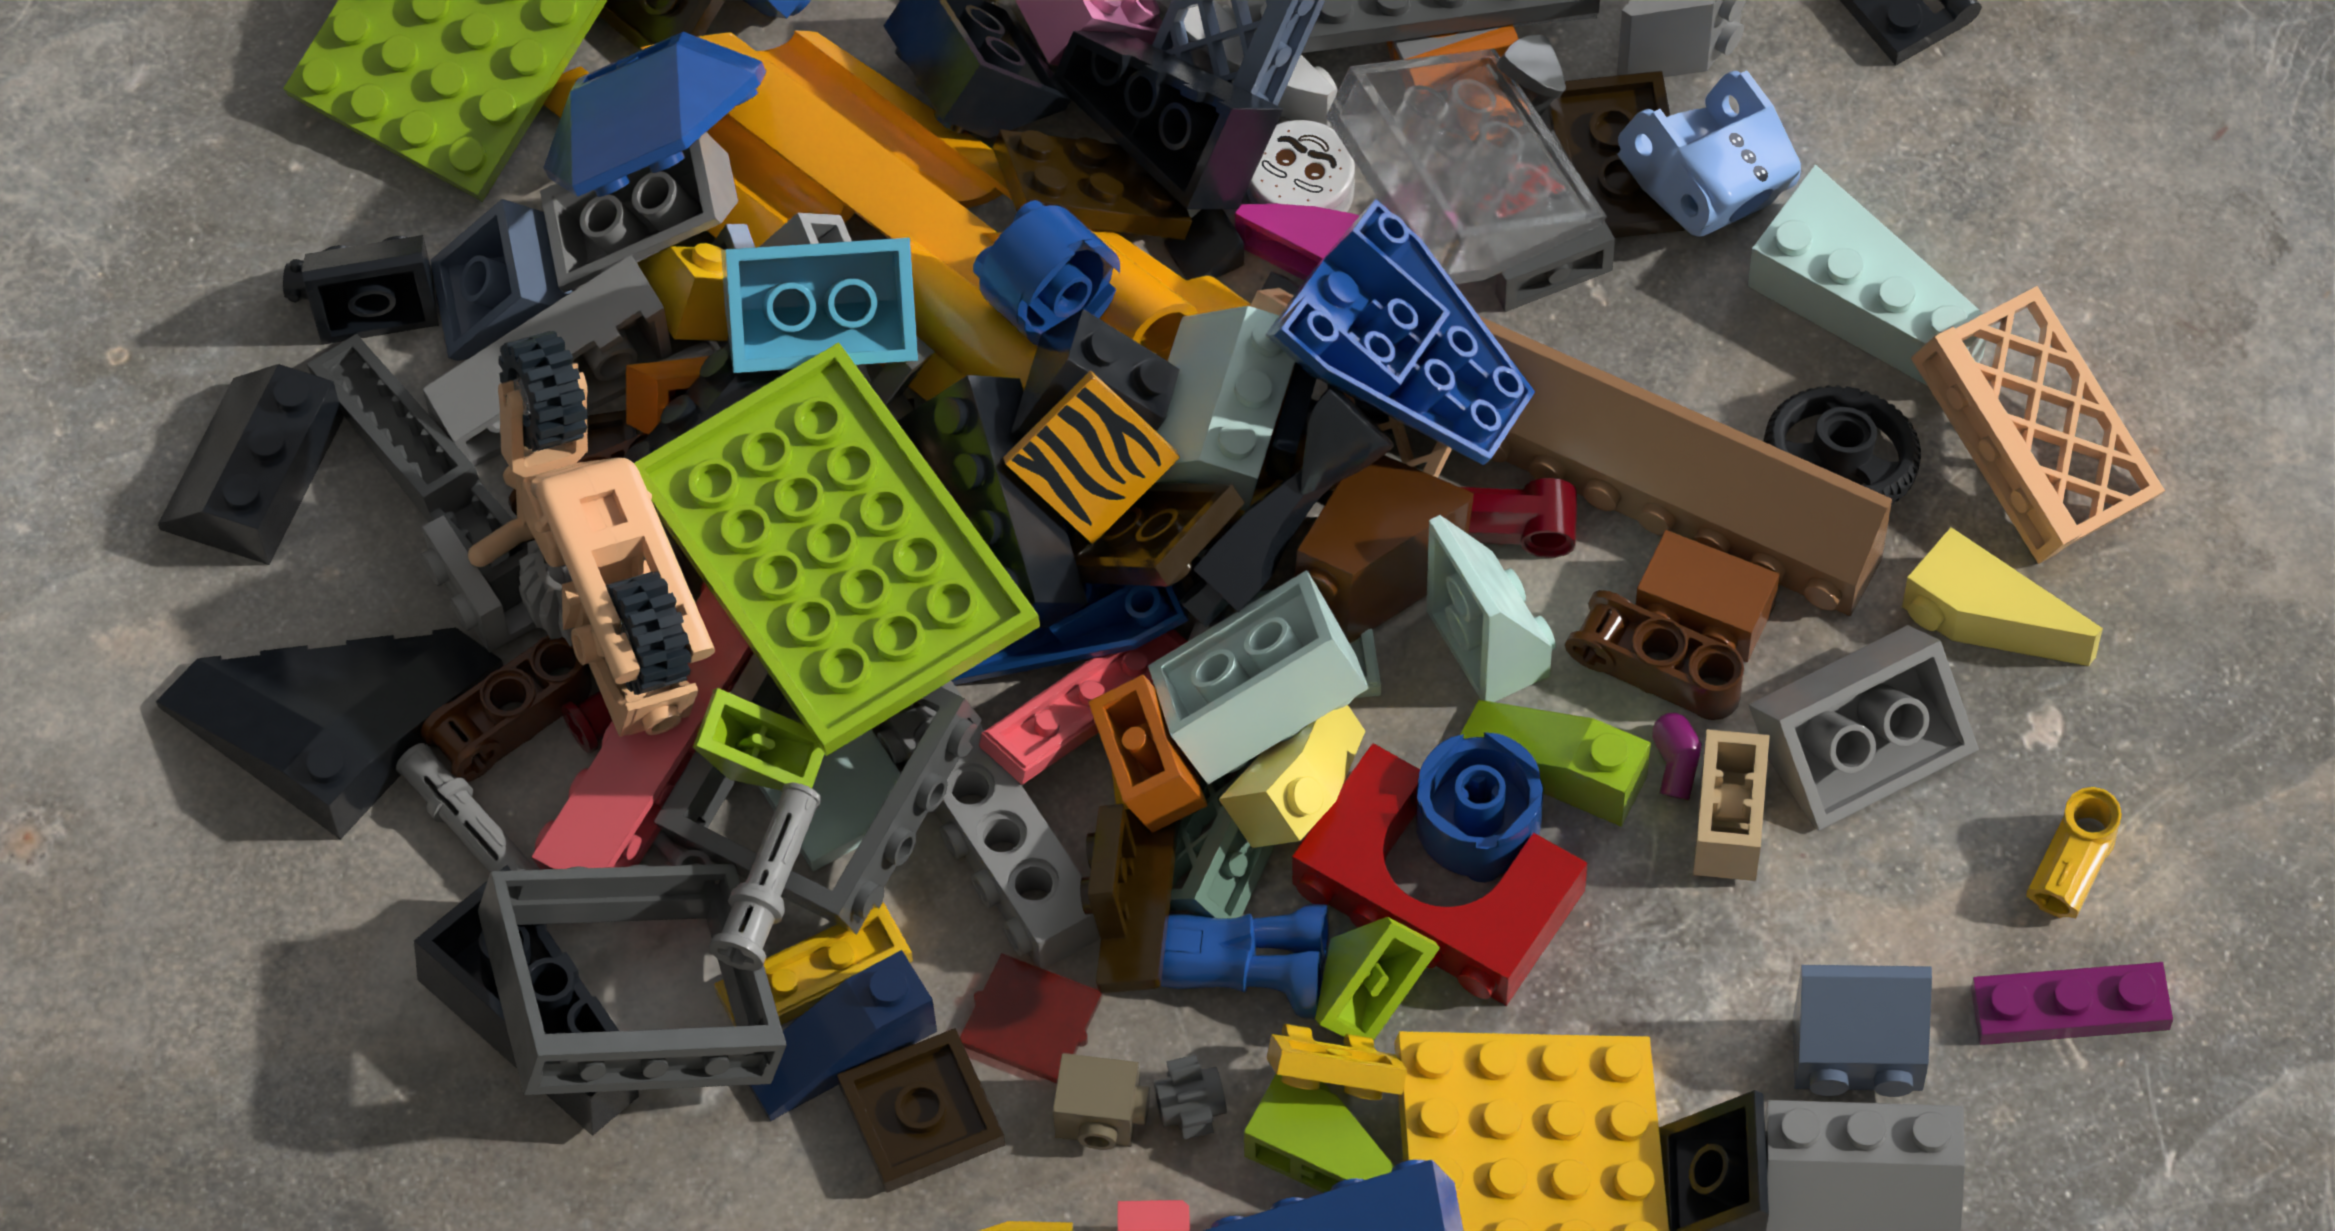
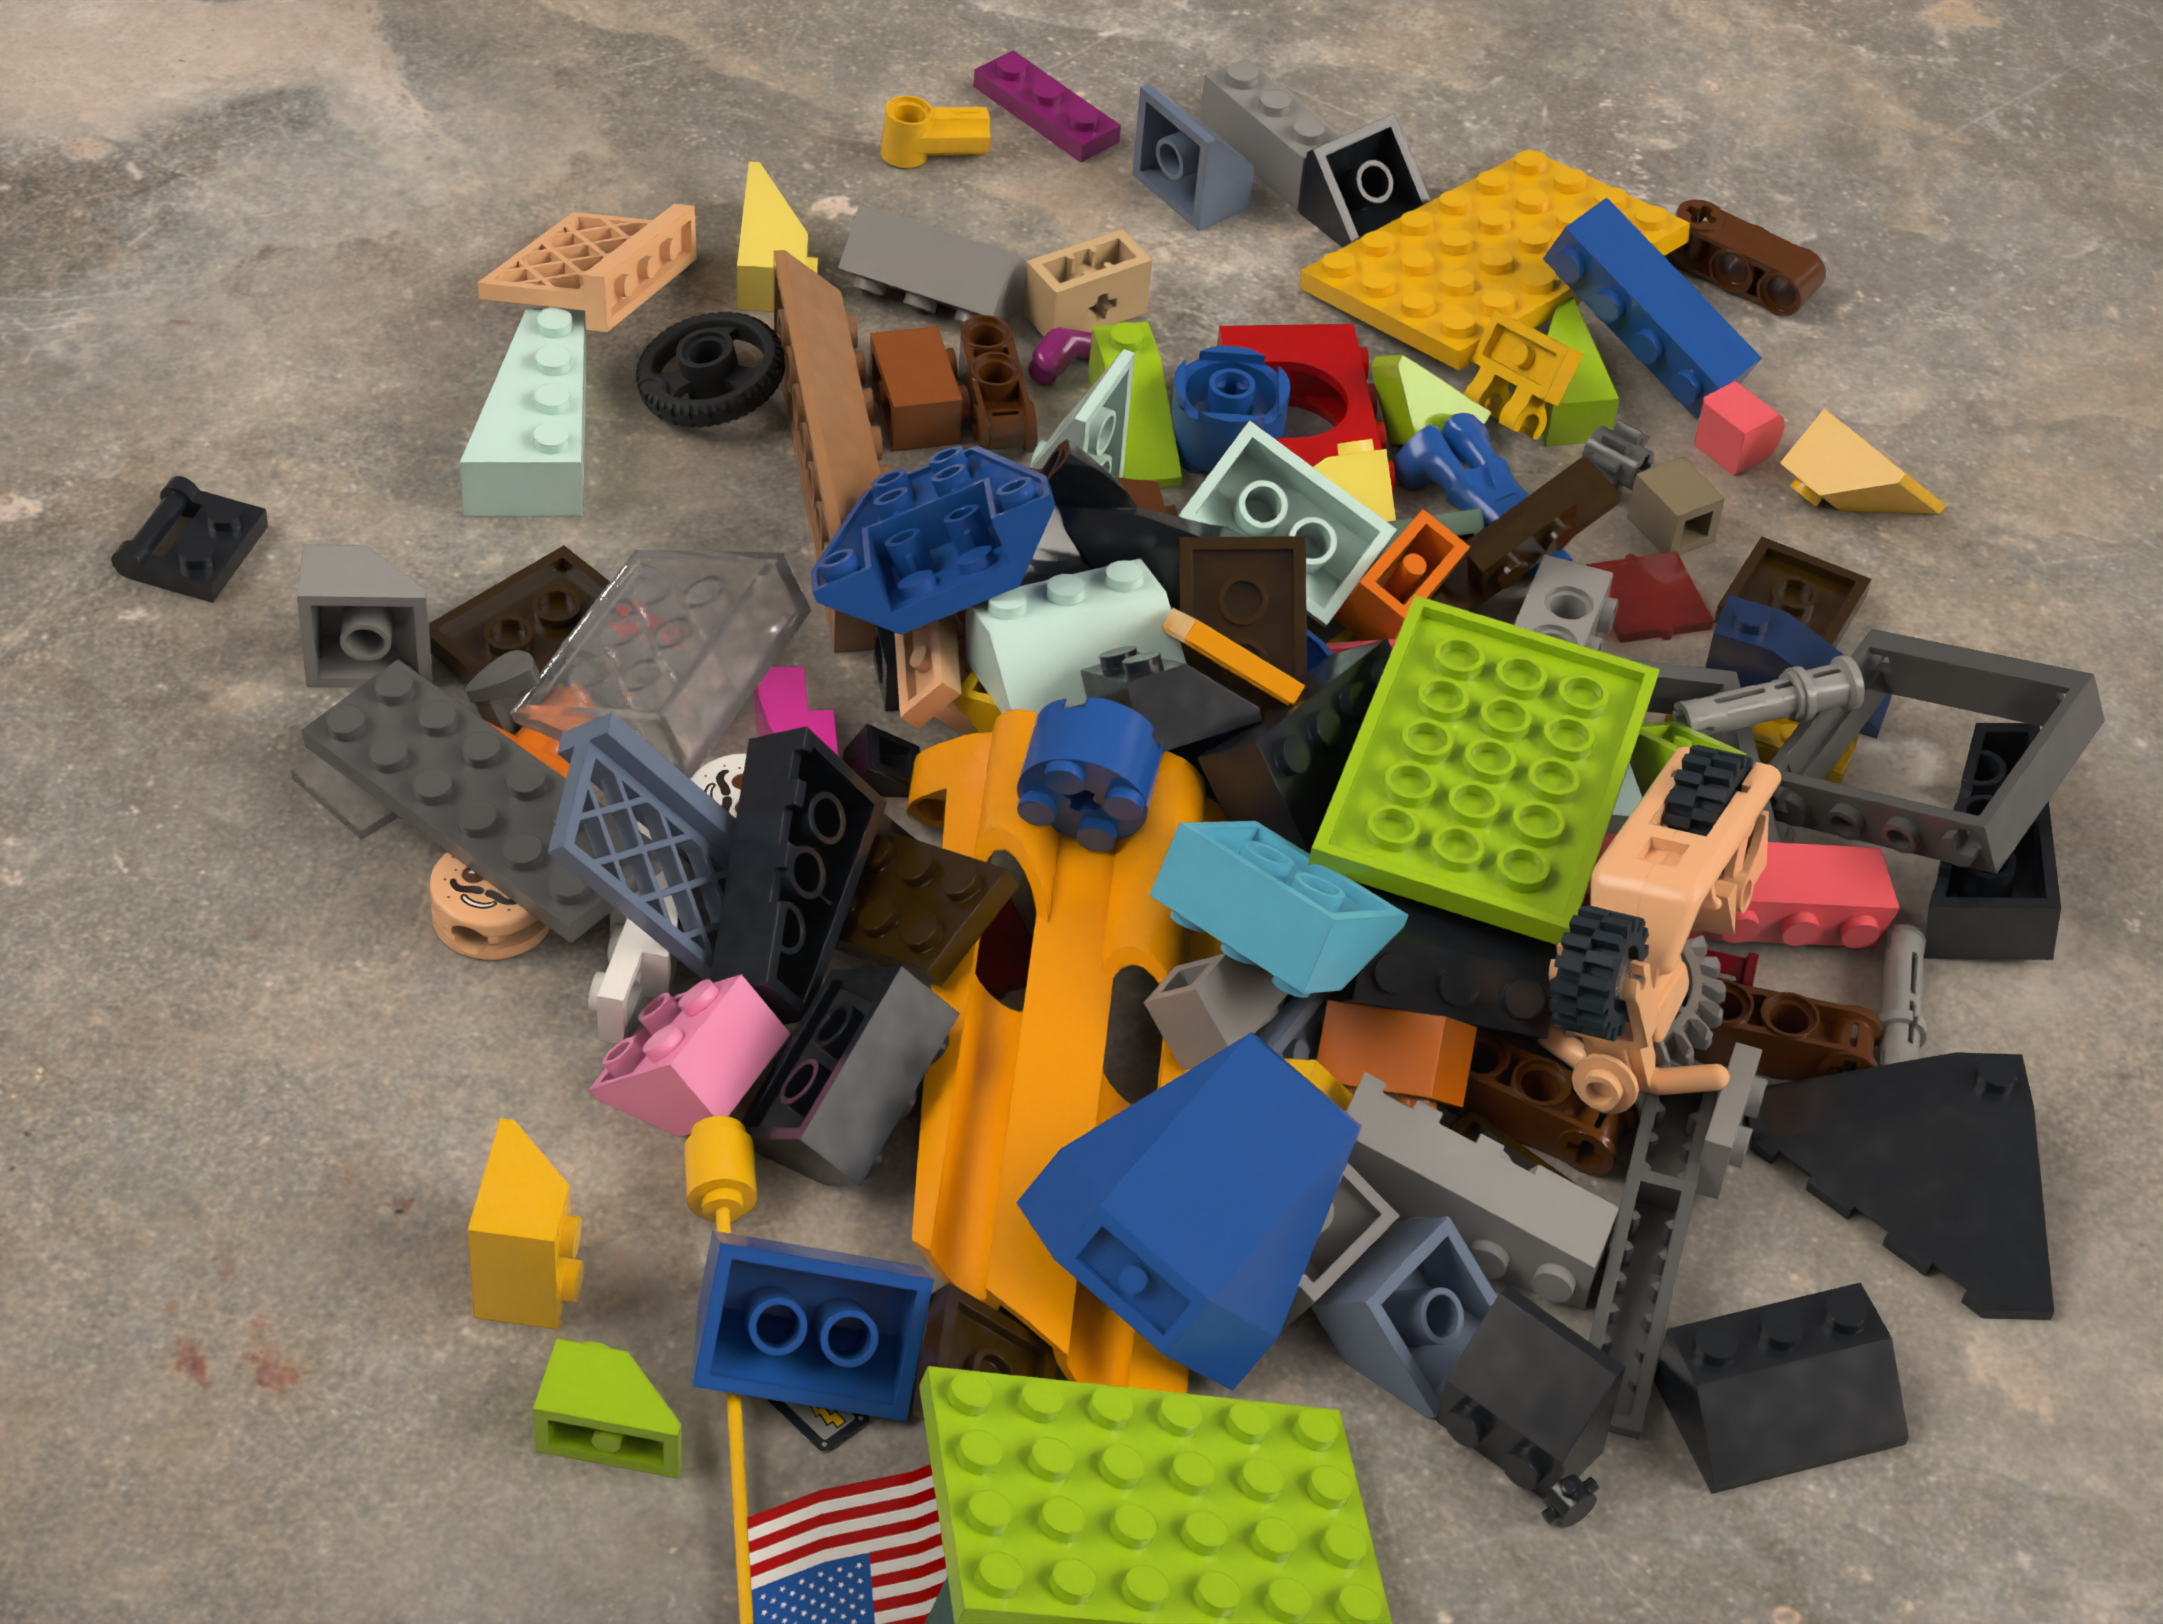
camera: 135 degrees left, 15 degrees down
(1710, 161) = (511, 537): light blue piece -> none

